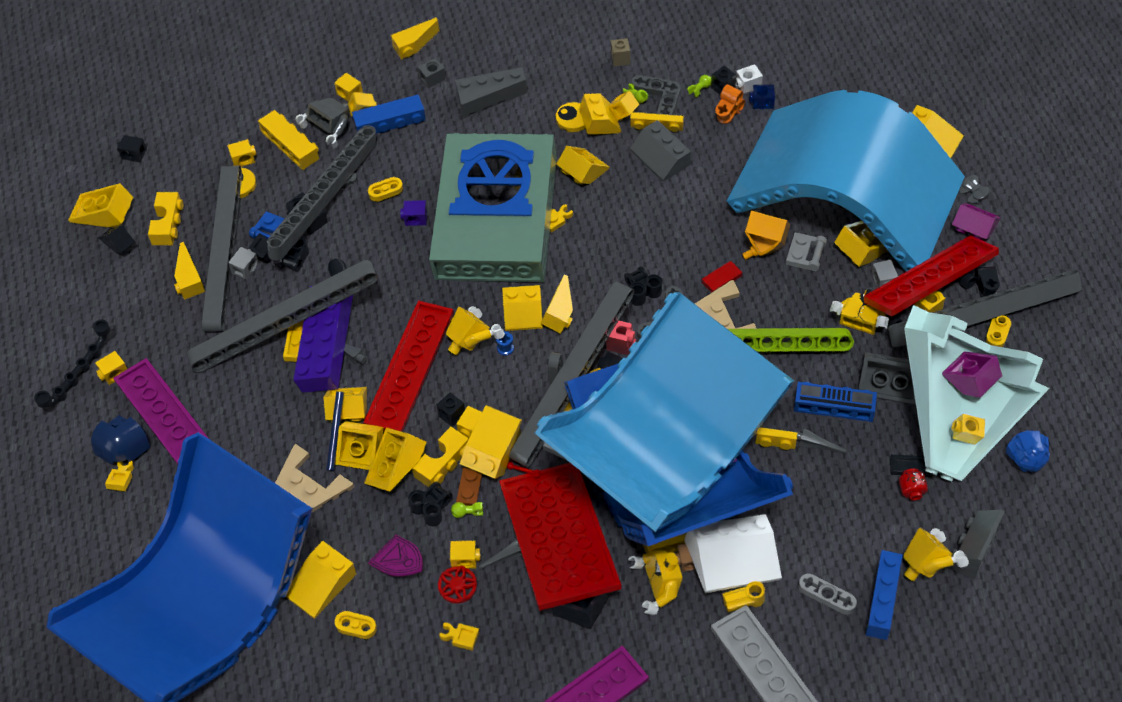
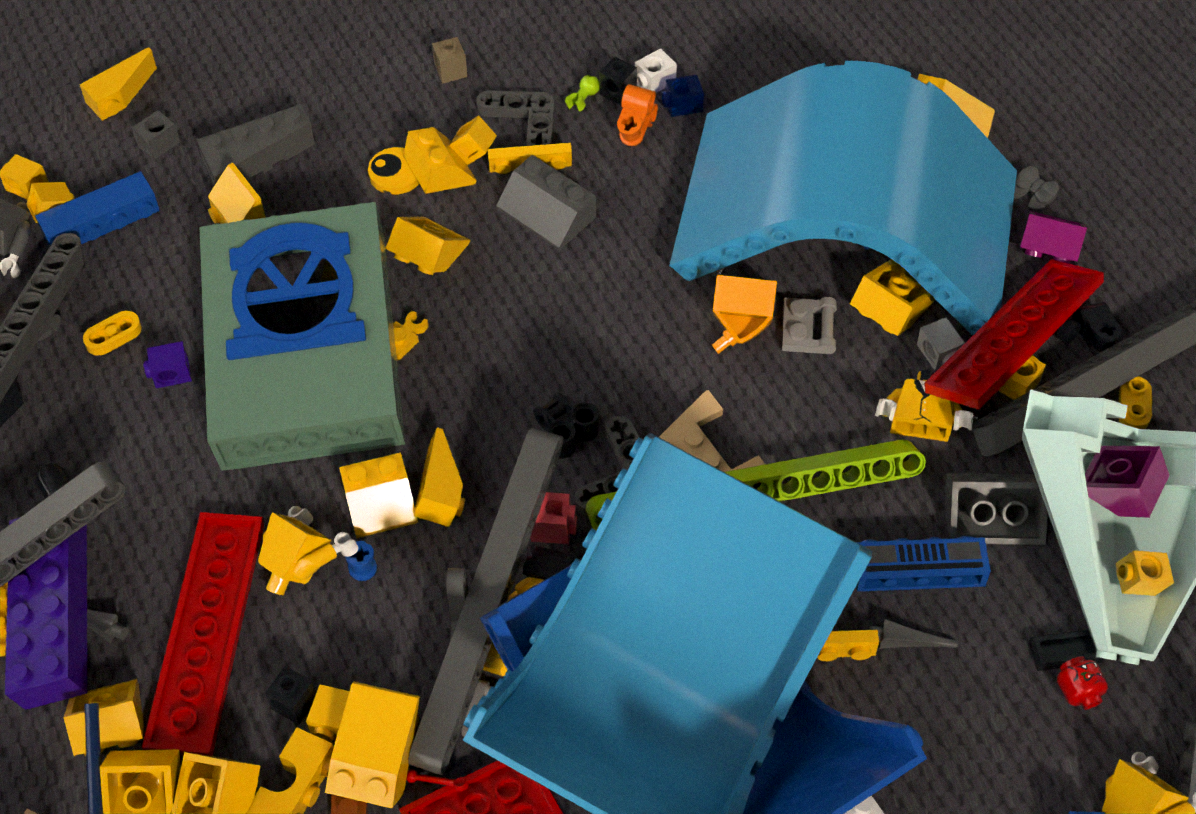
camera: 15 degrees left, 0 degrees up
(470, 119) = (234, 198): none -> yellow slope
(640, 95) = (495, 120): lime arm -> none
(721, 276) = (688, 388): red tile -> none

